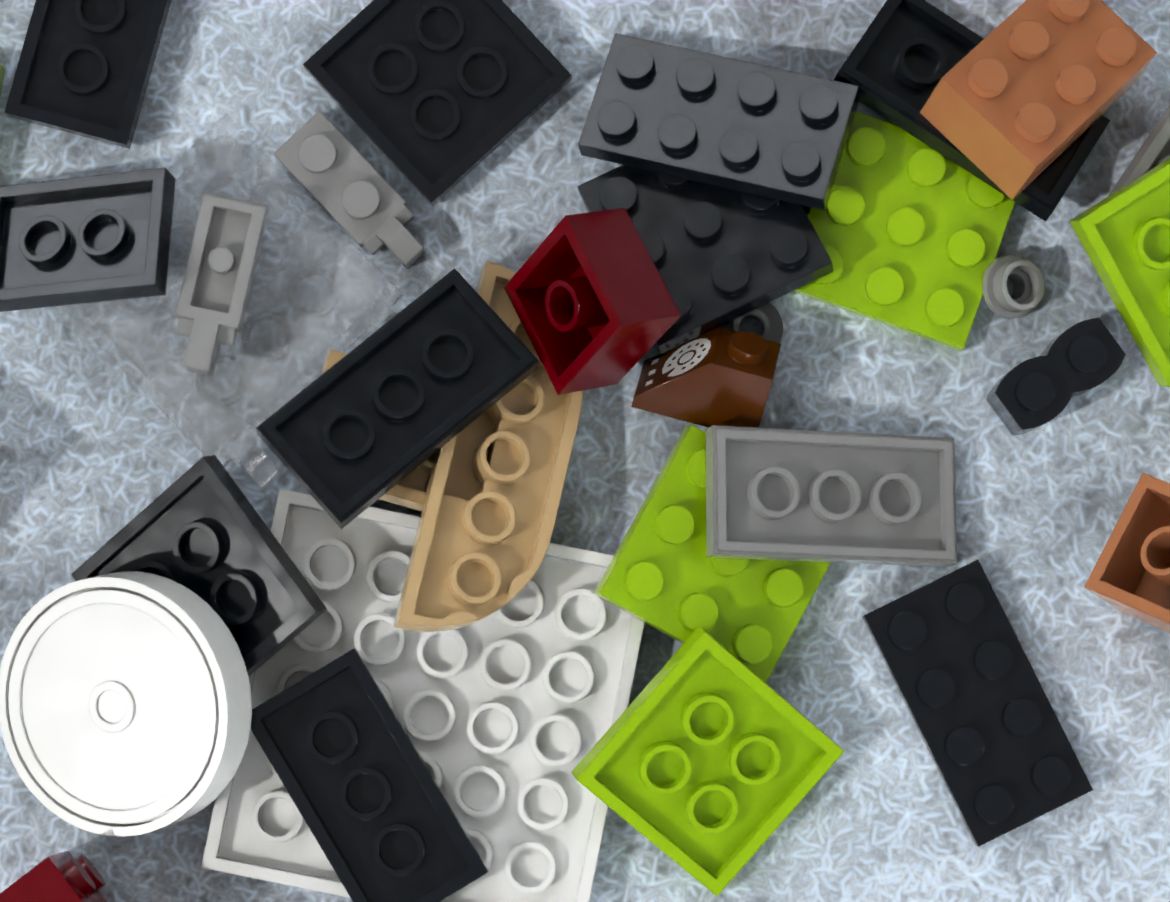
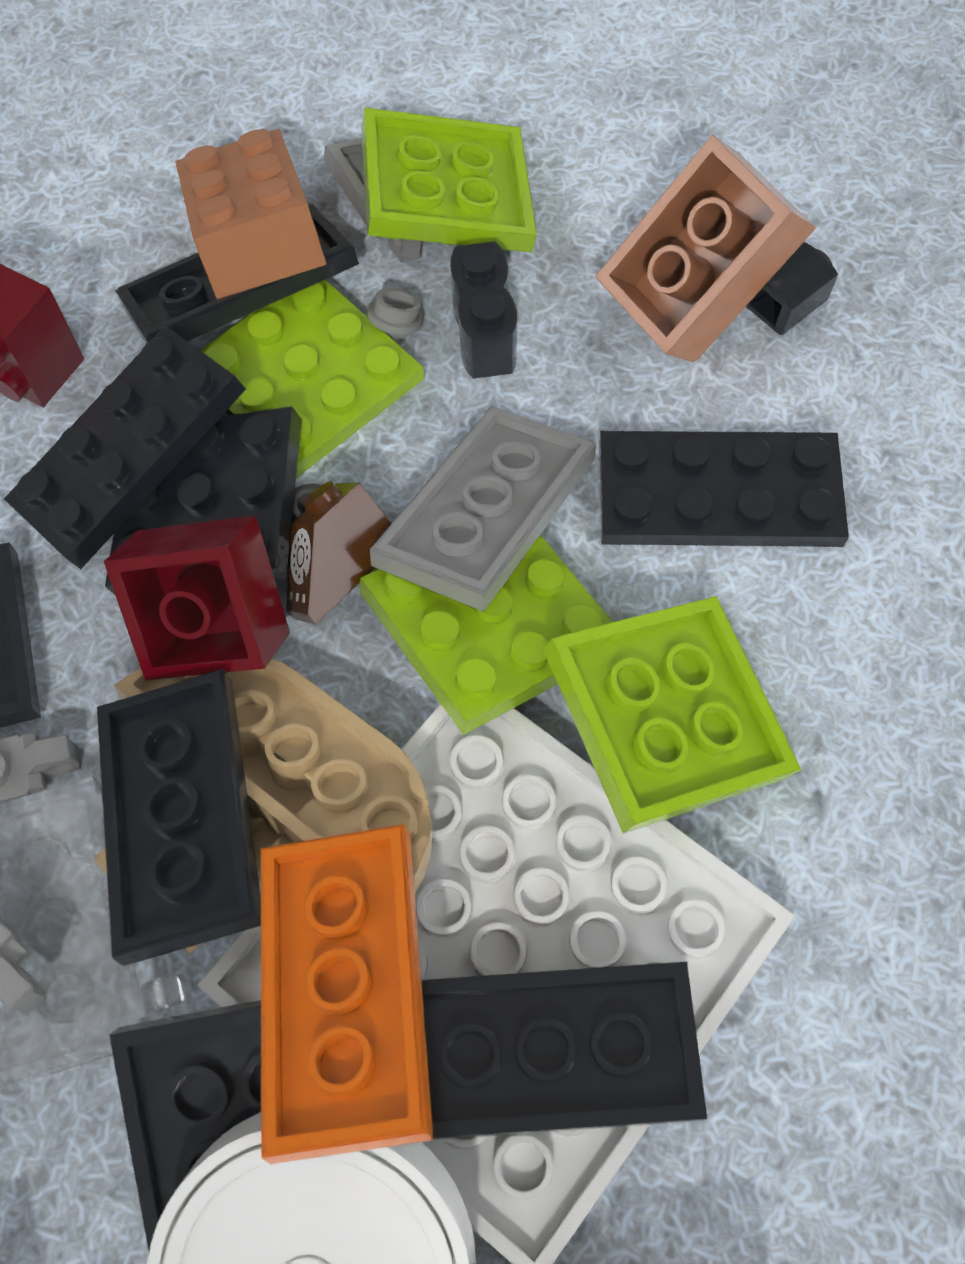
camera: 60 degrees left, 20 degrees down
(320, 621) = (341, 998): none -> orange tile

